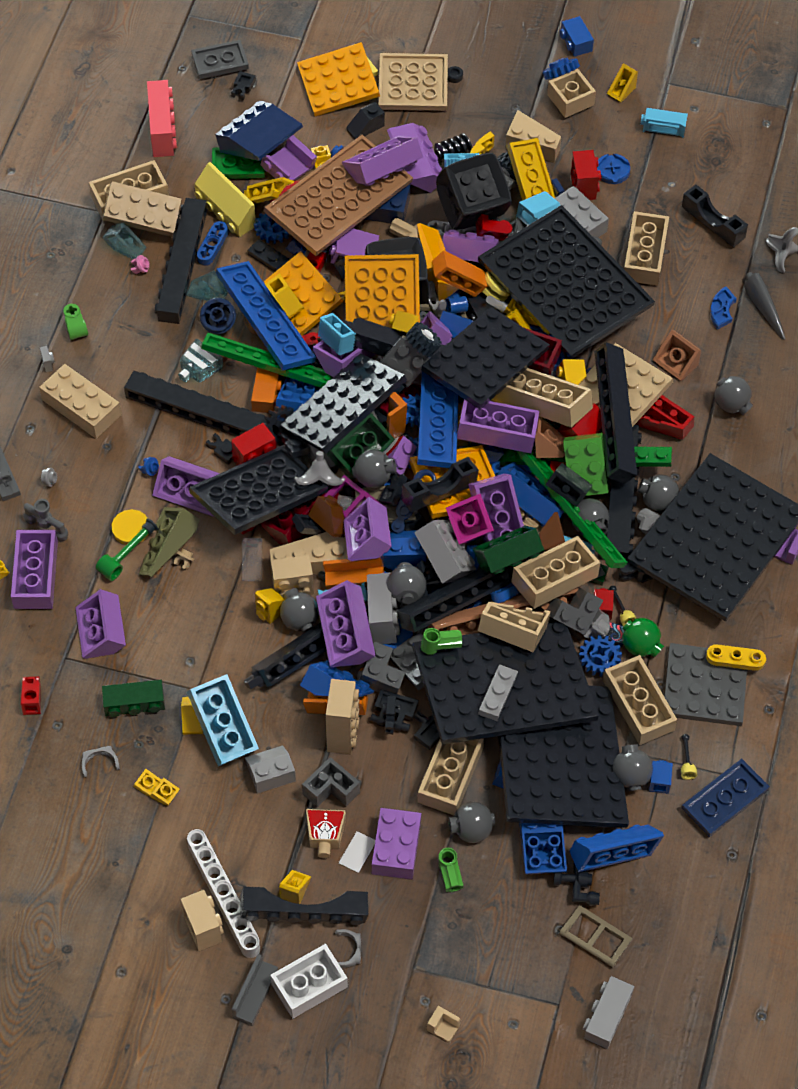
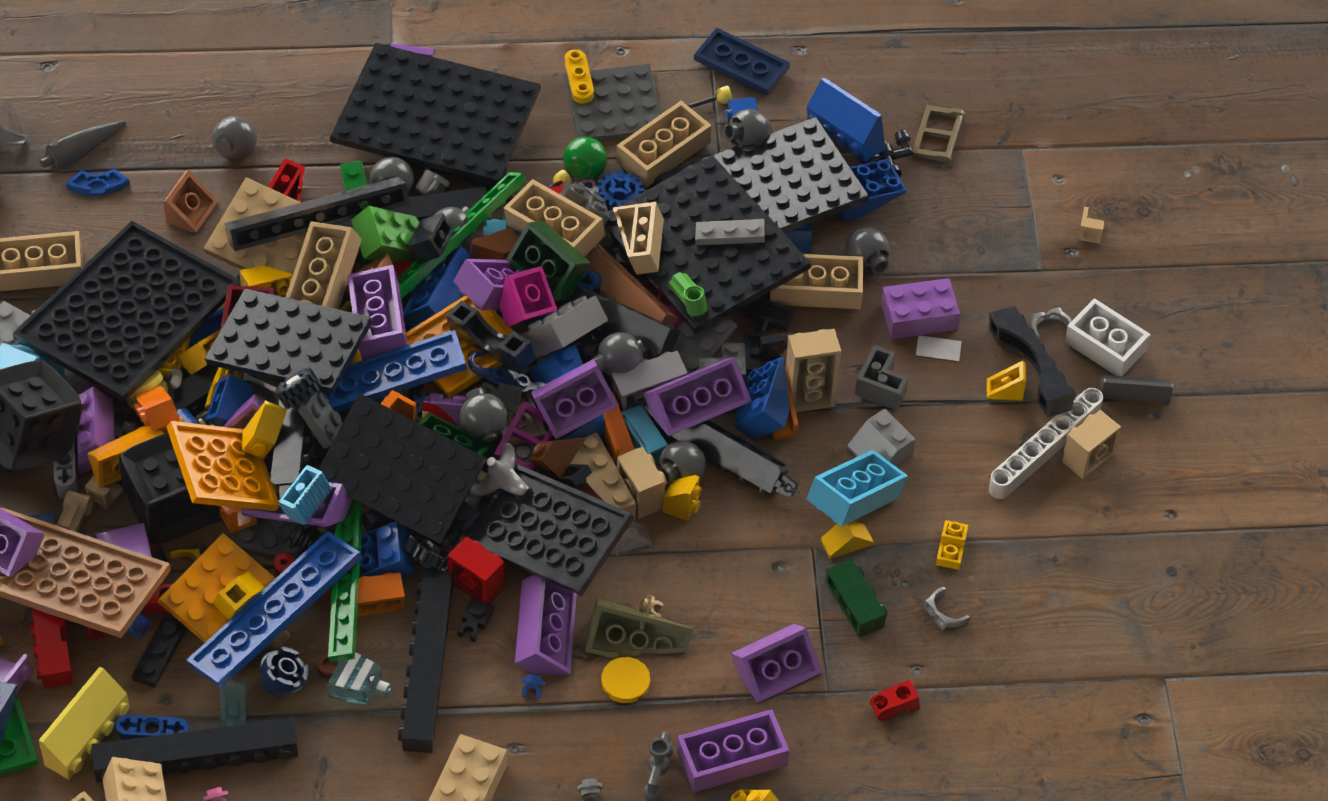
camera: 110 degrees left, 5 degrees down
(111, 566) = (692, 677): green piece -> none
(266, 190) = (77, 656): yellow wedge -> none
(269, 229) = (111, 656): blue gear -> none
(325, 829) = (932, 374): torso -> none
(450, 871) = (922, 260): bright green piece -> none
(608, 1012) = (1014, 102): light grey brick -> none

